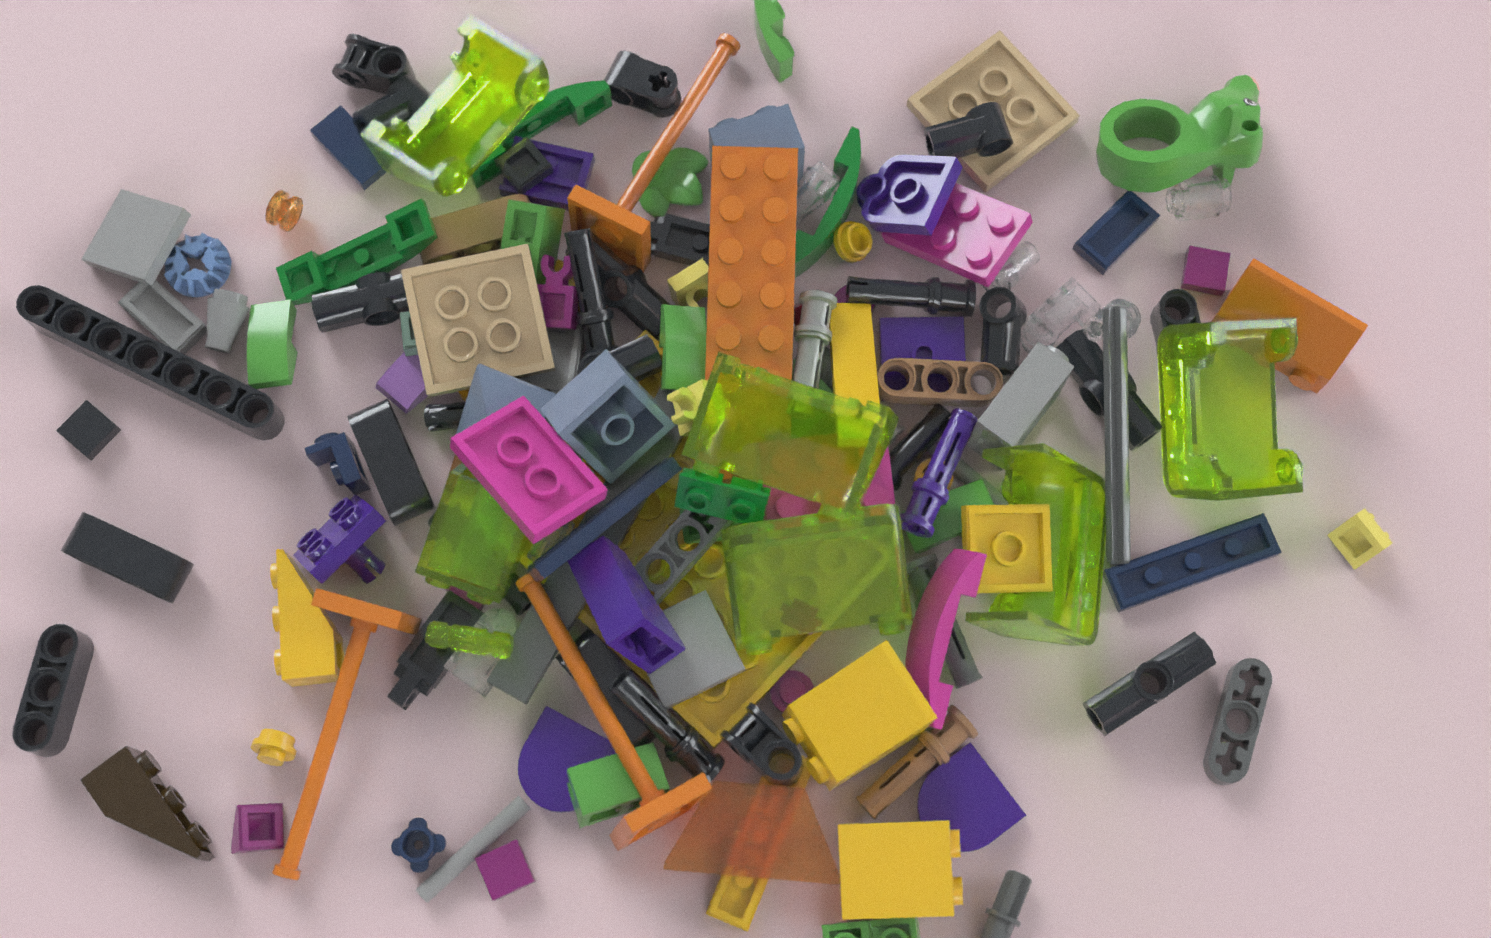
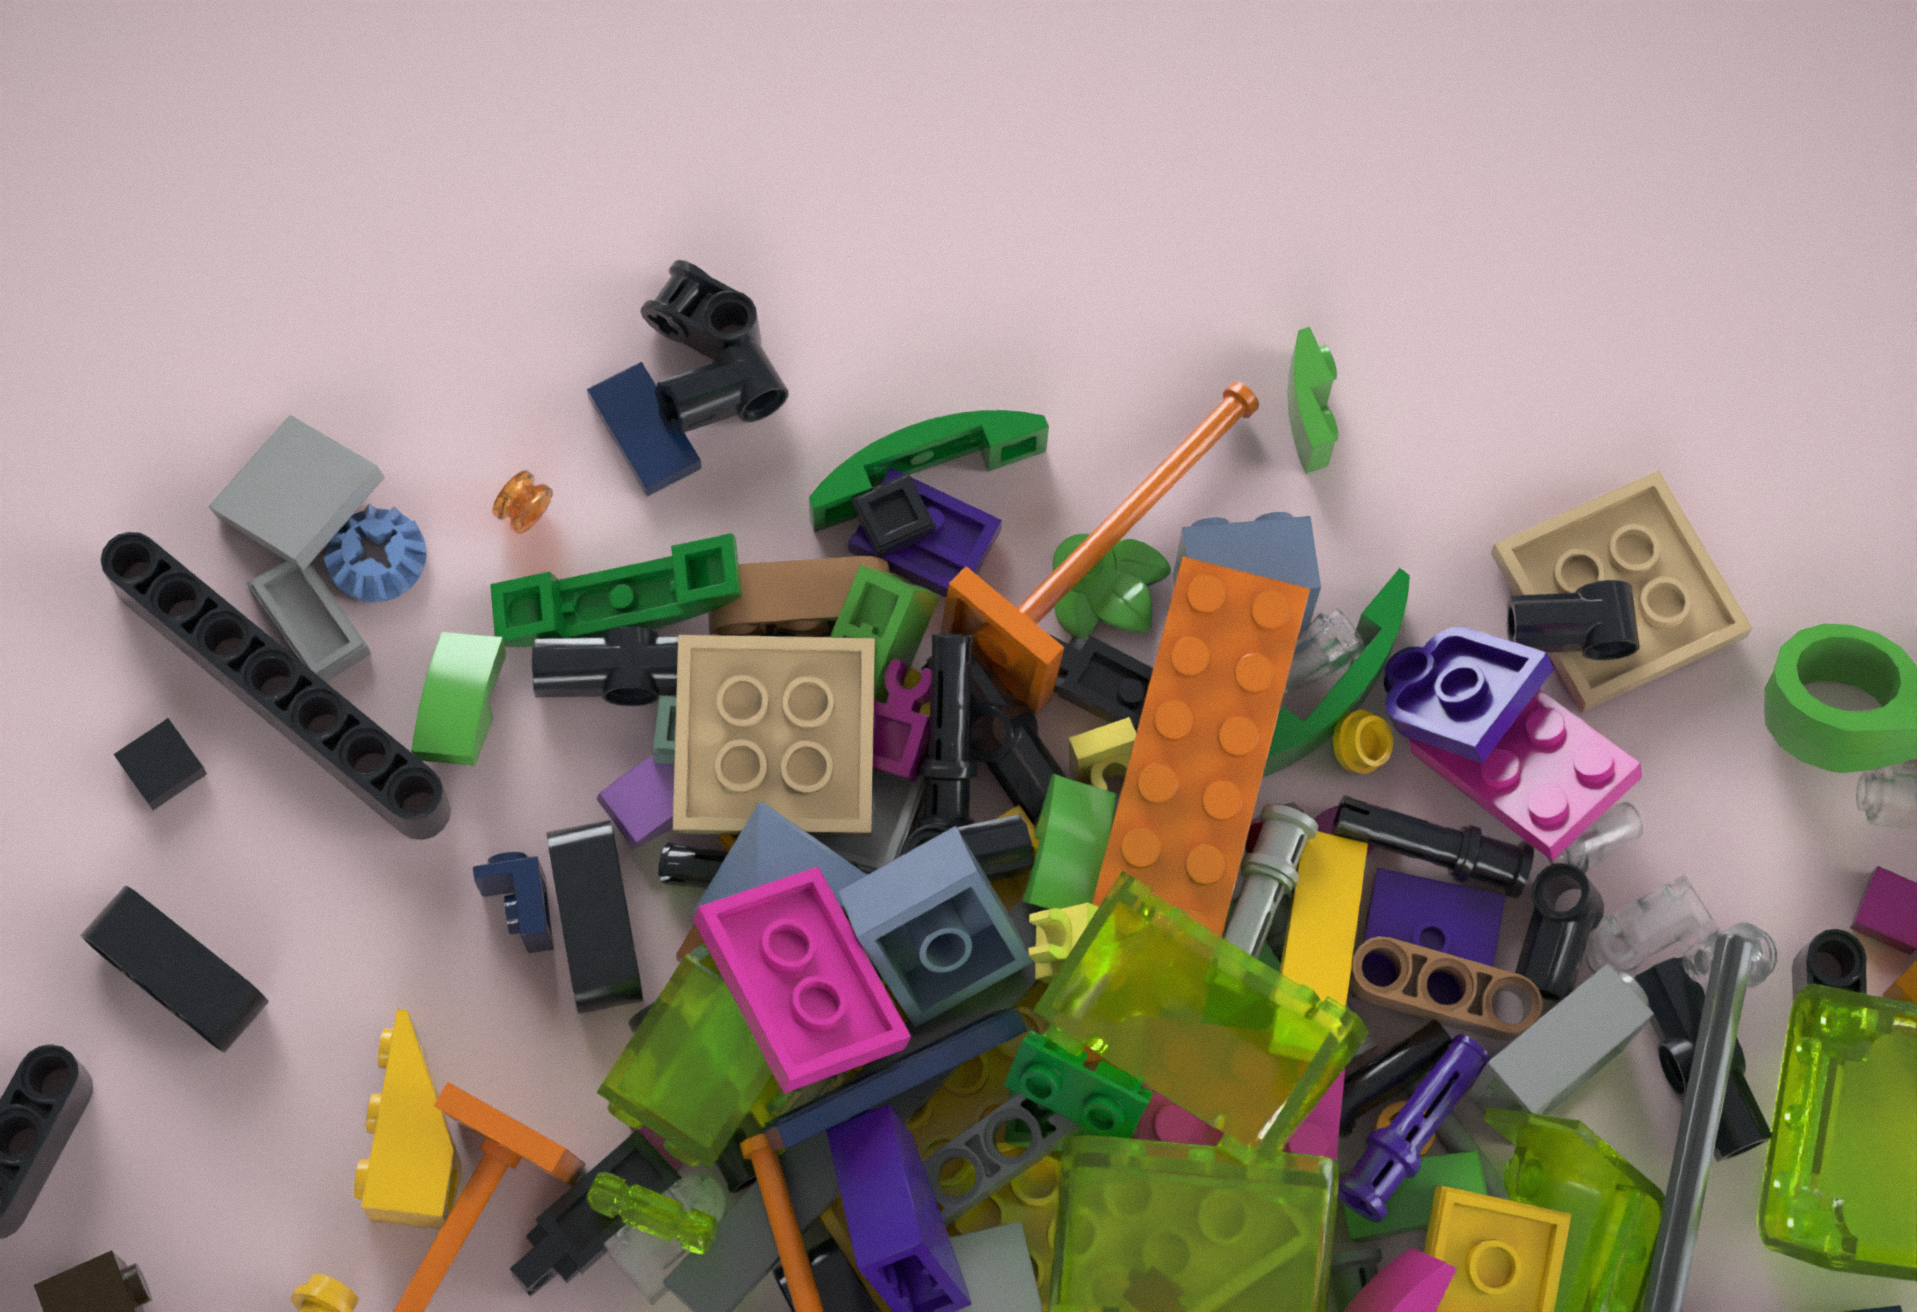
camera: 10 degrees right, 5 degrees down
(224, 319) = (398, 643): light grey cone -> none
(342, 541) = (497, 1019): dark purple plate -> none
(465, 116) = (822, 423): clear neon green windscreen -> none
(643, 85) = (1100, 431): black piece -> none
(1116, 231) = (1769, 818): dark blue tile -> none

